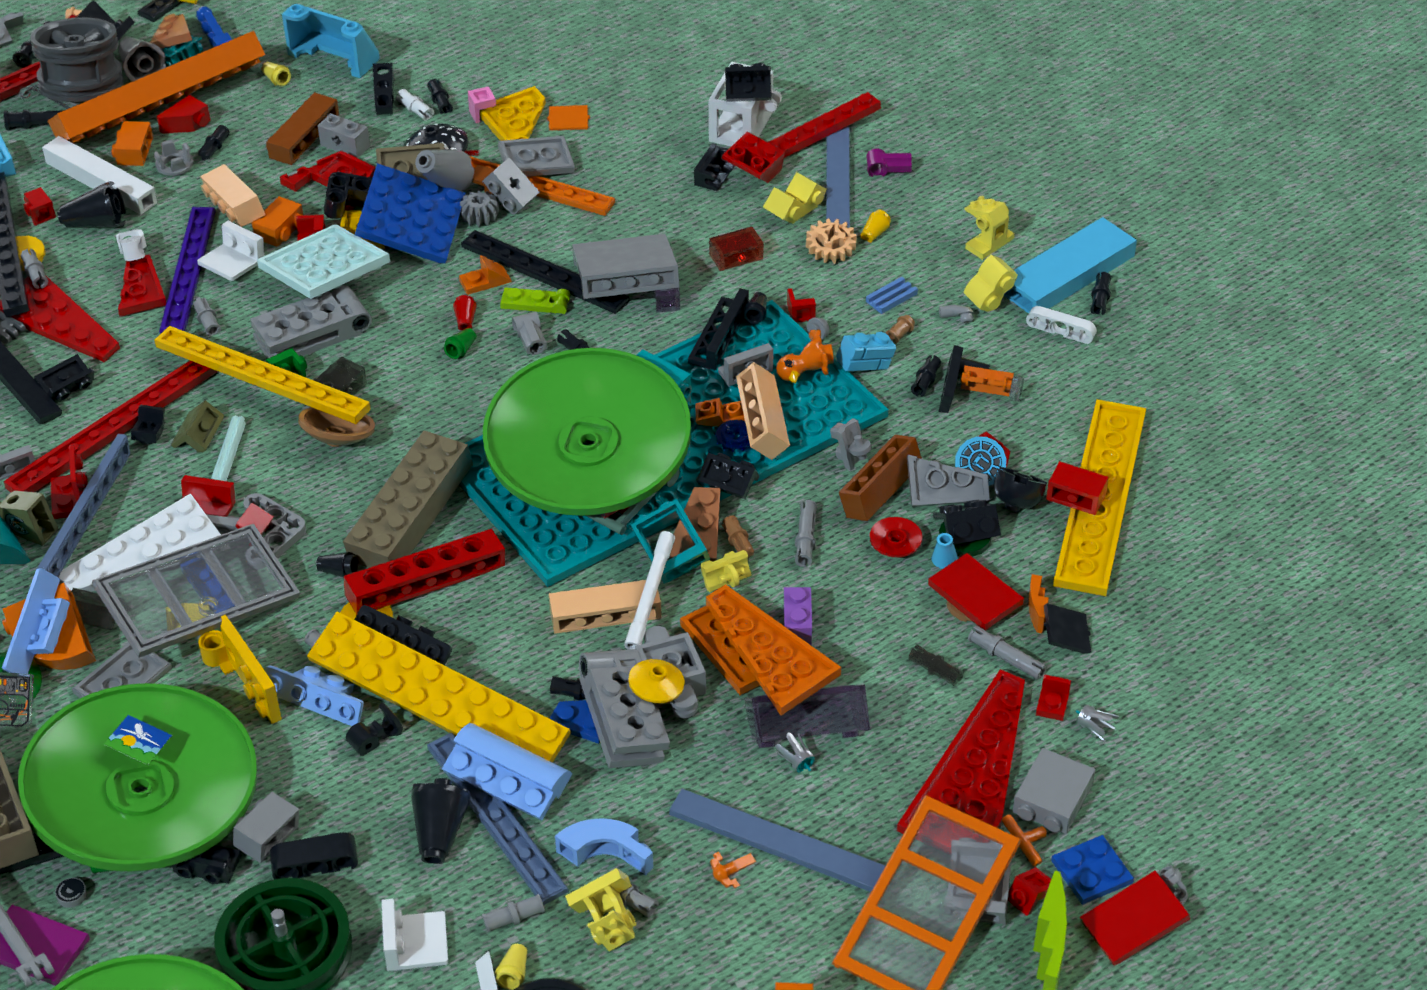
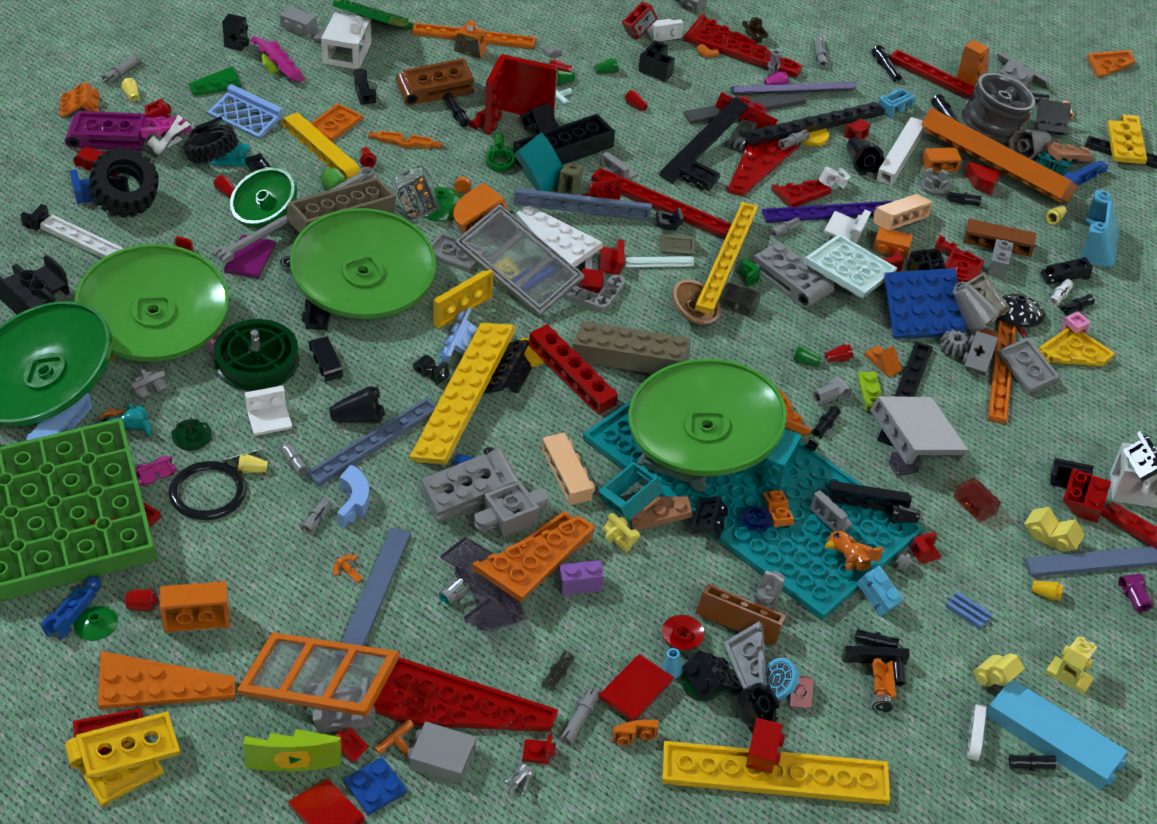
camera: 75 degrees right, 0 degrees up
(38, 623) = (470, 194): light blue bracket -> none
(137, 739) = (389, 256): sticker -> none
(265, 826) = (342, 330): light grey brick -> none
(338, 564) = (571, 326): black cone -> none
(506, 770) = (404, 434): light blue brick -> none
(568, 117) = (1094, 382): orange piece -> none
(601, 897) = (291, 507): light yellow tile -> none
(656, 681) = (484, 499): yellow dish -> none
(661, 554) = (596, 482): white piece -> none
(737, 535) = (657, 537): medium nougat axle -> none
(762, 411) = (780, 526): light nougat brick -> none
(805, 539) = (673, 577): light grey pin -> none
(831, 240) = (1013, 560): light nougat gear -> none
(903, 325) = (927, 618): medium nougat pin -> none
(956, 310) = (966, 656): light grey arm -> none
(1067, 628) = (611, 752): black piece -> none

